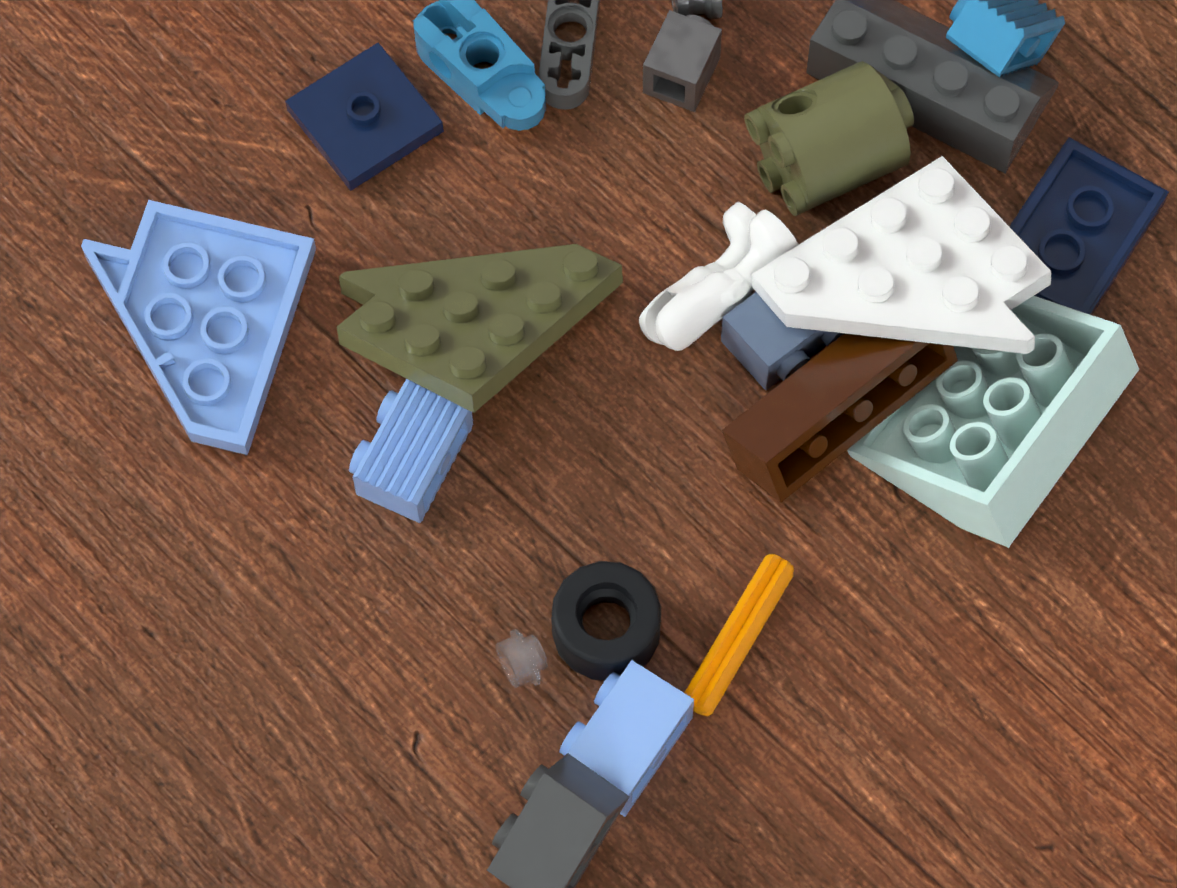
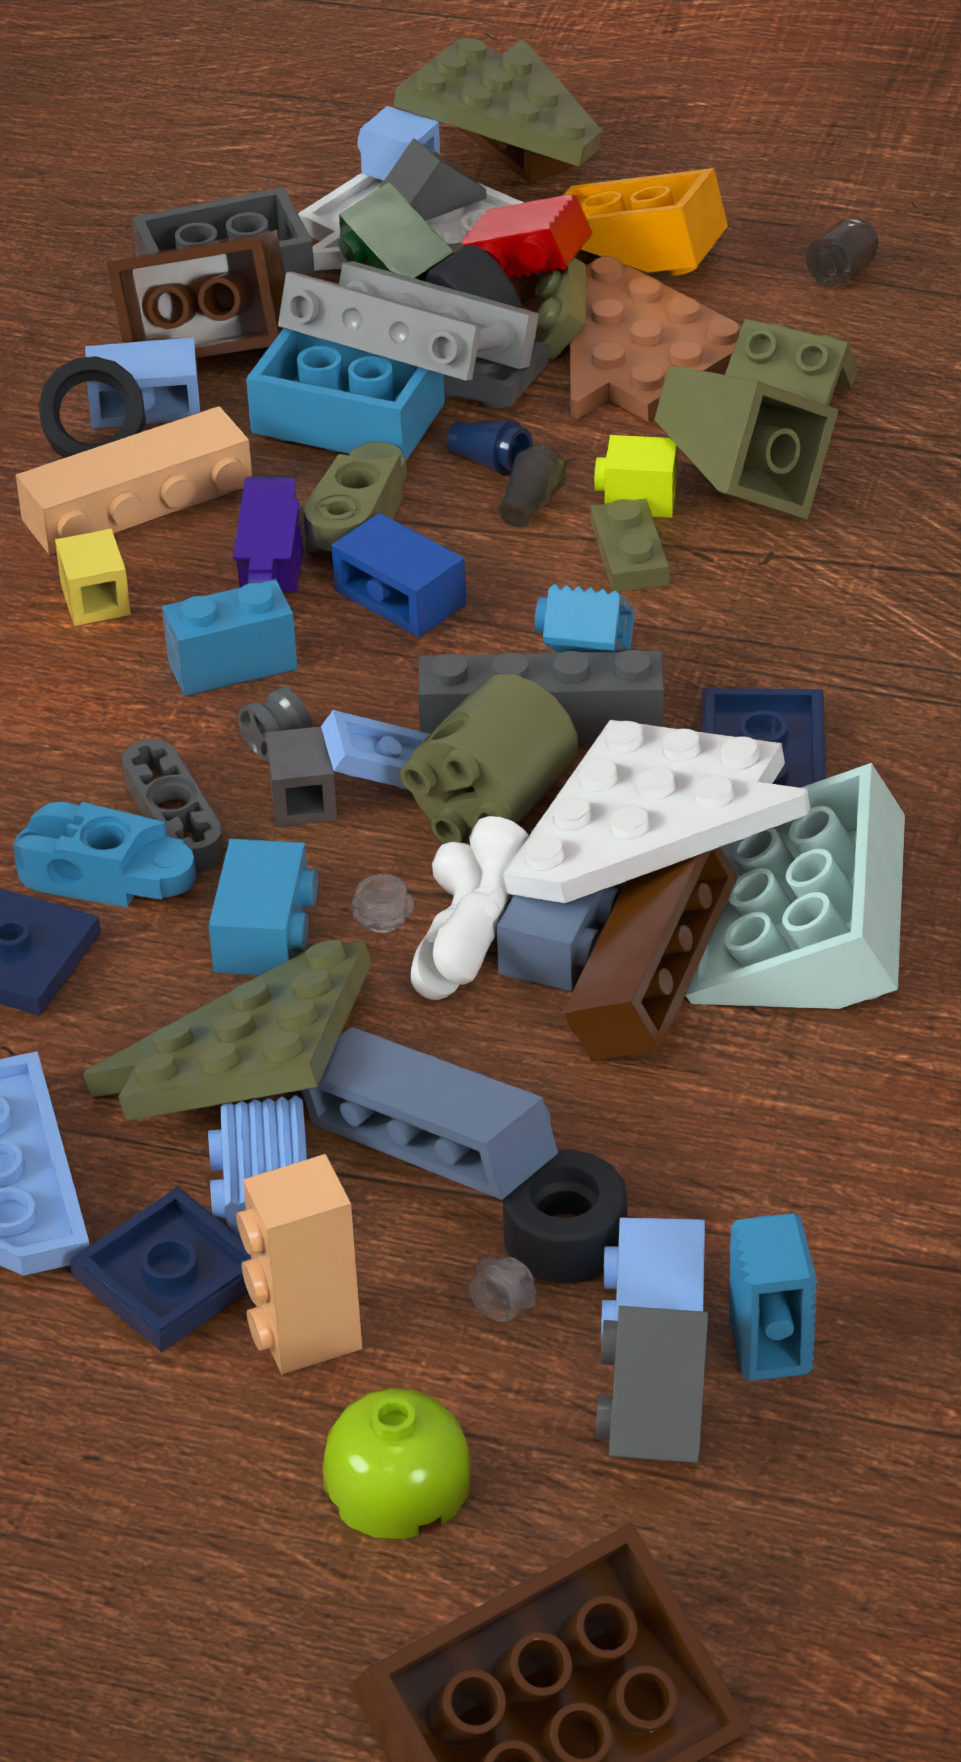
camera: 30 degrees left, 25 degrees down
(293, 499) = (165, 1268): none -> dark blue plate
(345, 775) = (396, 1463): none -> lime cylinder
(354, 579) = (300, 1264): none -> light nougat brick
(555, 479) = (432, 1113): none -> sand blue brick
(567, 182) = (261, 906): none -> dark azure brick
(662, 214) = (382, 903): none -> clear plate
(696, 799) = (772, 1296): none -> dark azure brick
(739, 633) = (699, 1167): light orange axle -> none
(748, 71) = (369, 747): none -> light blue plate

